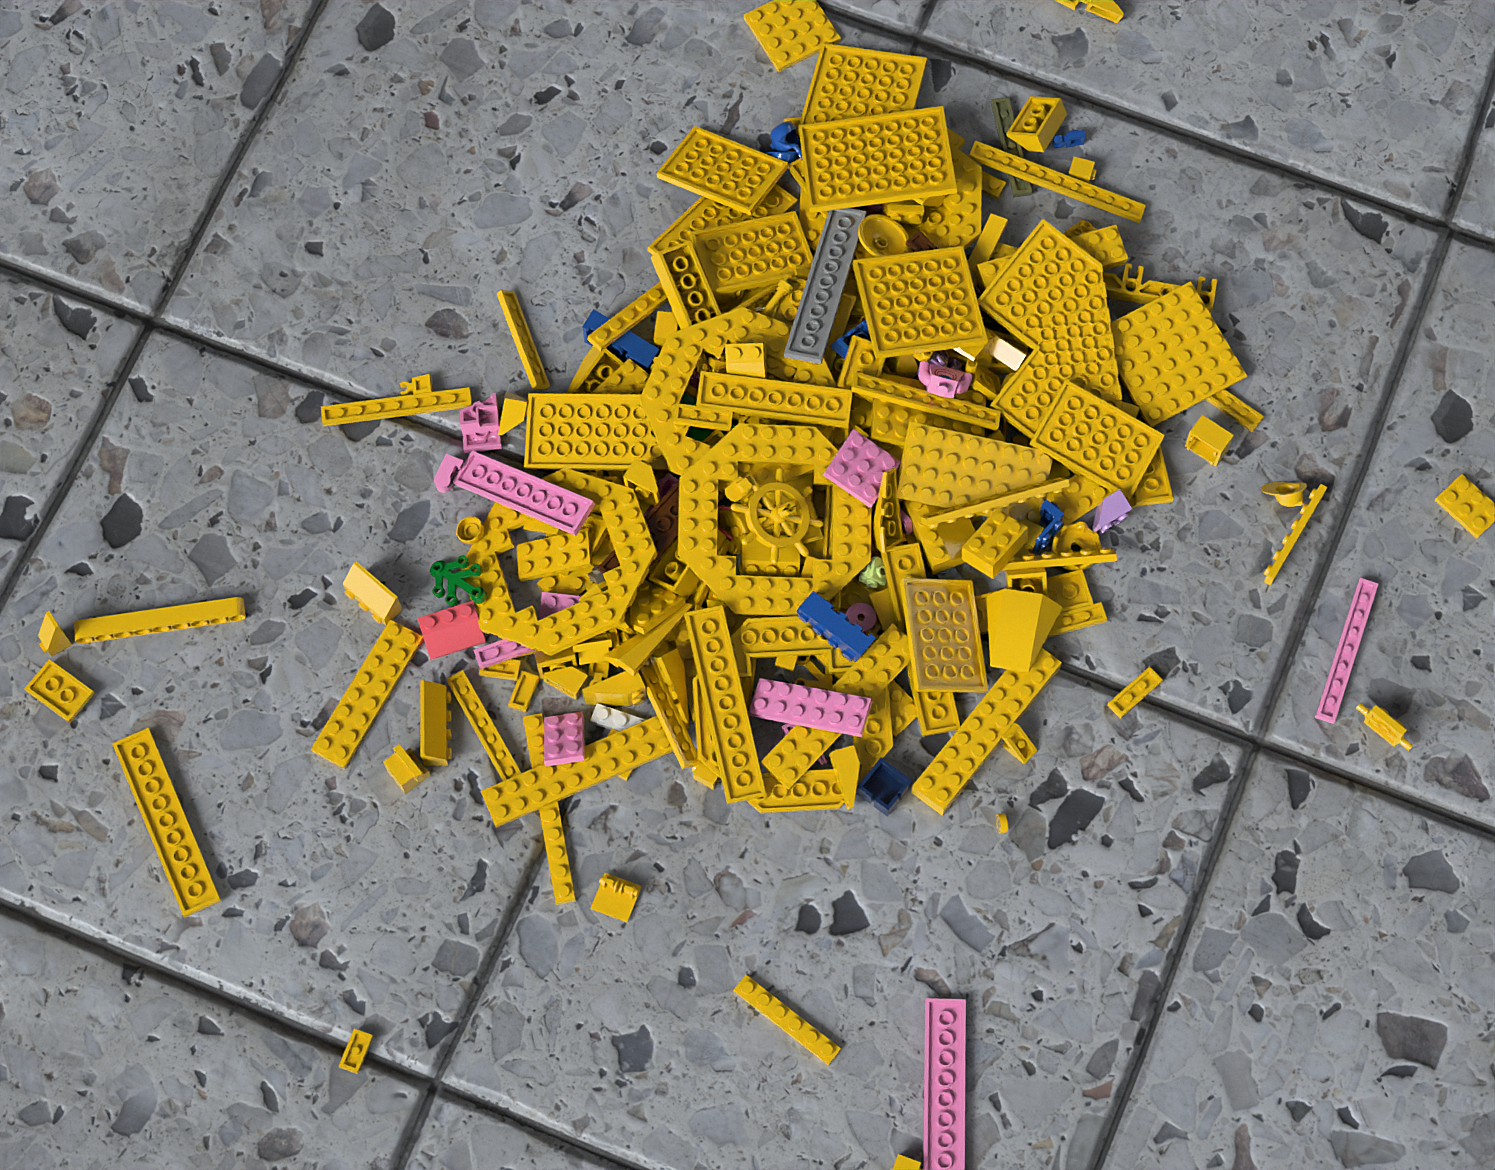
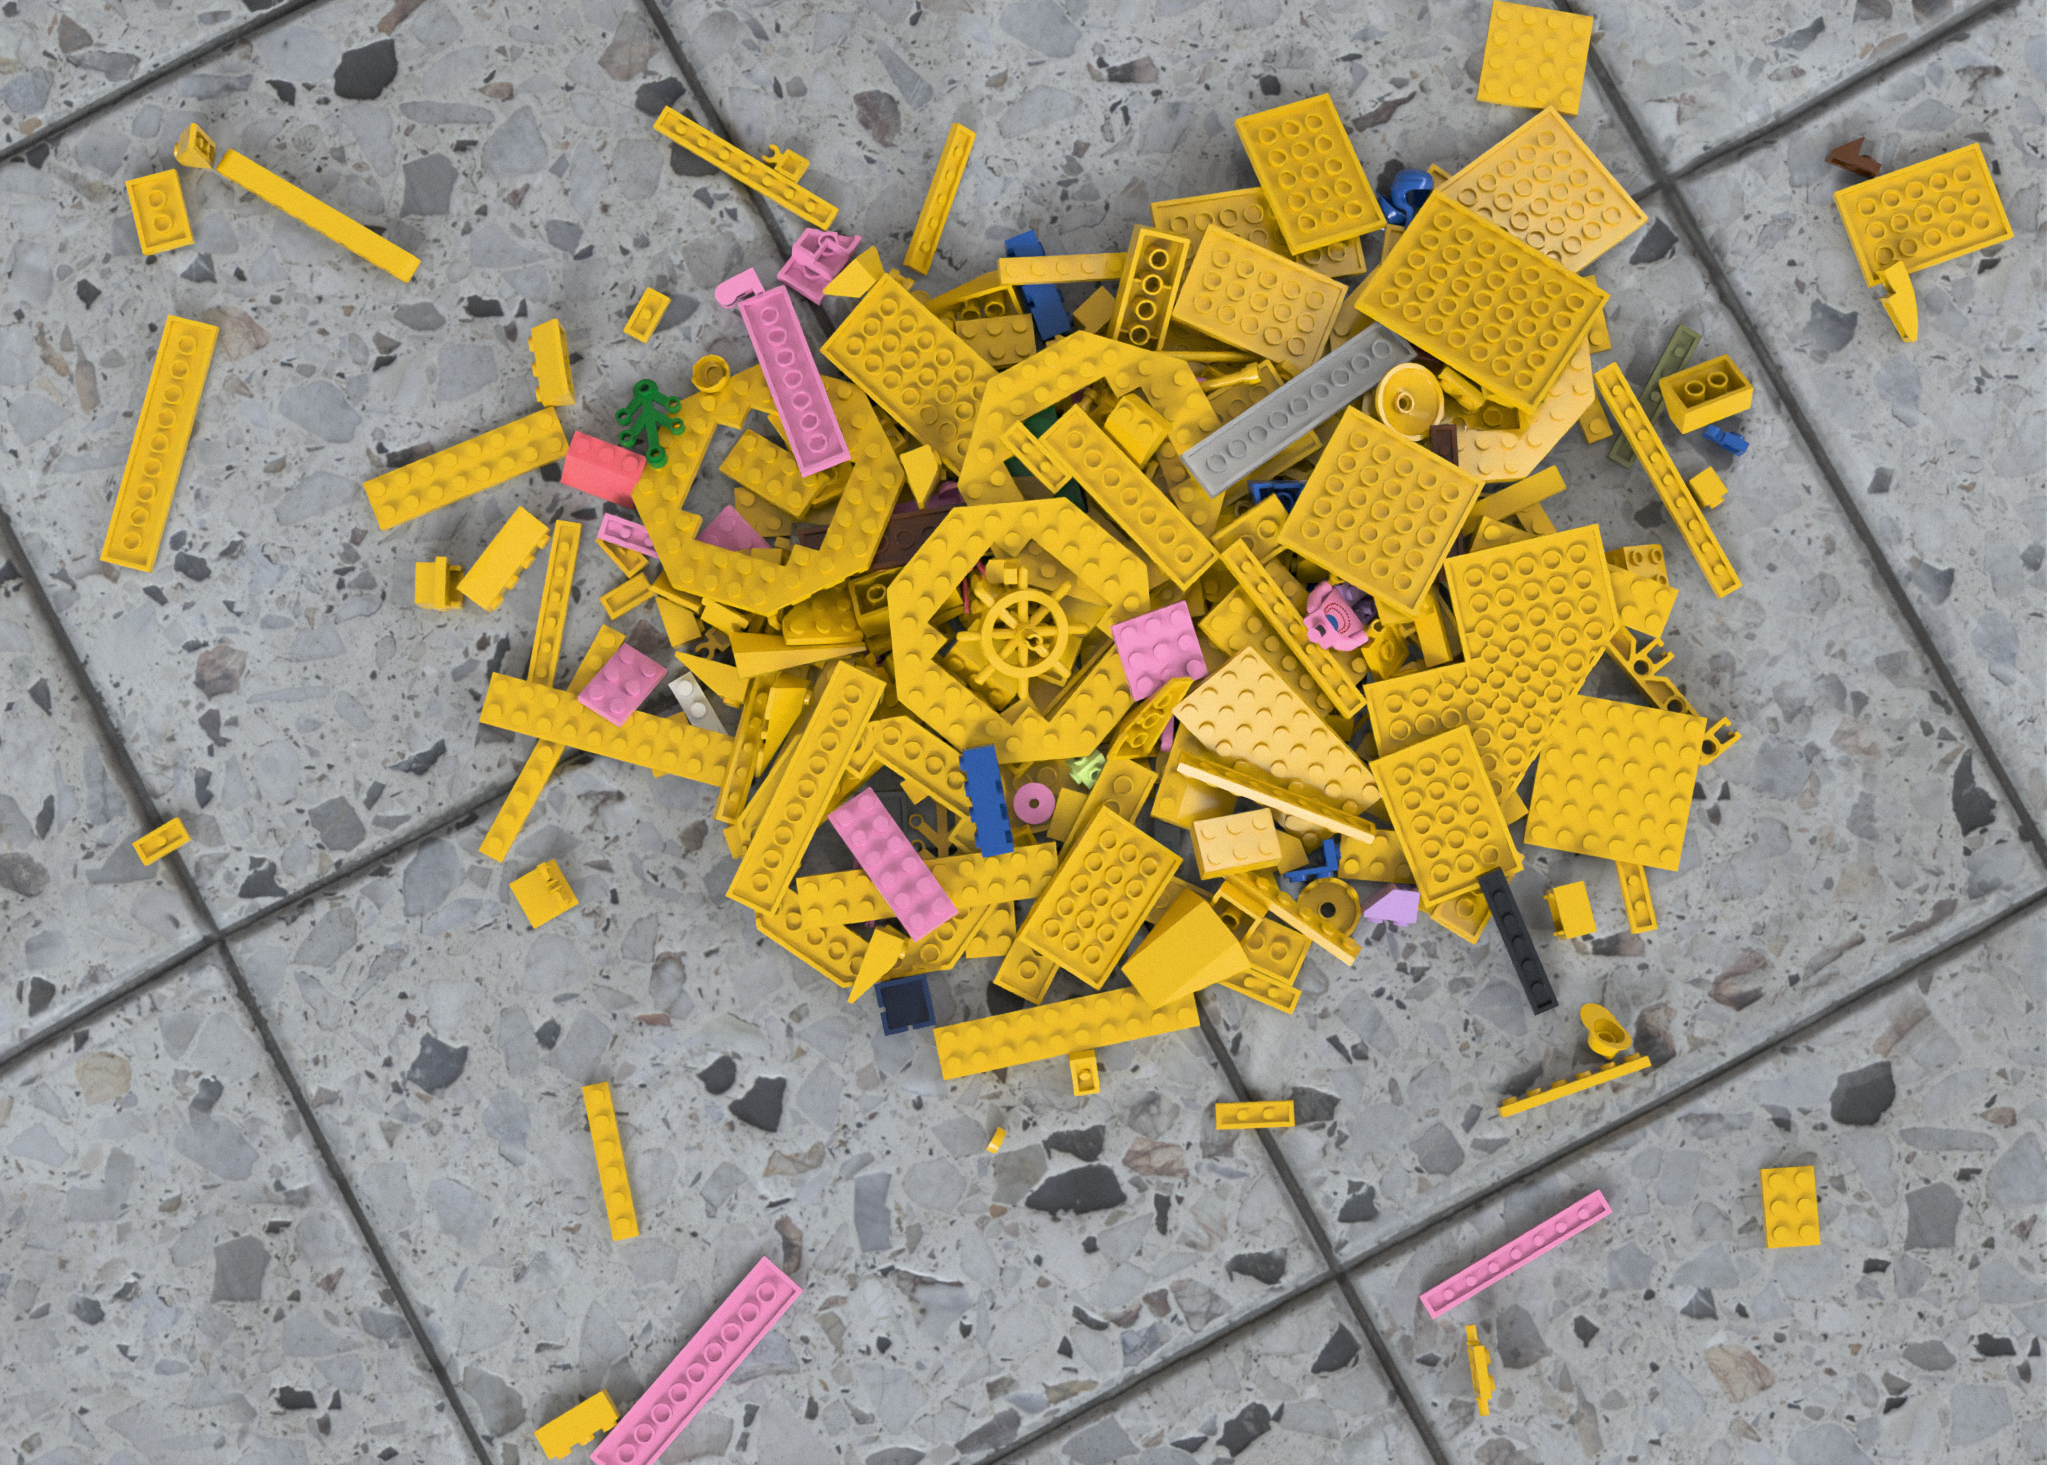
camera: 40 degrees right, 15 degrees up
(404, 528) = (647, 315): none -> yellow plate
(1195, 477) = (1517, 940): none -> black plate

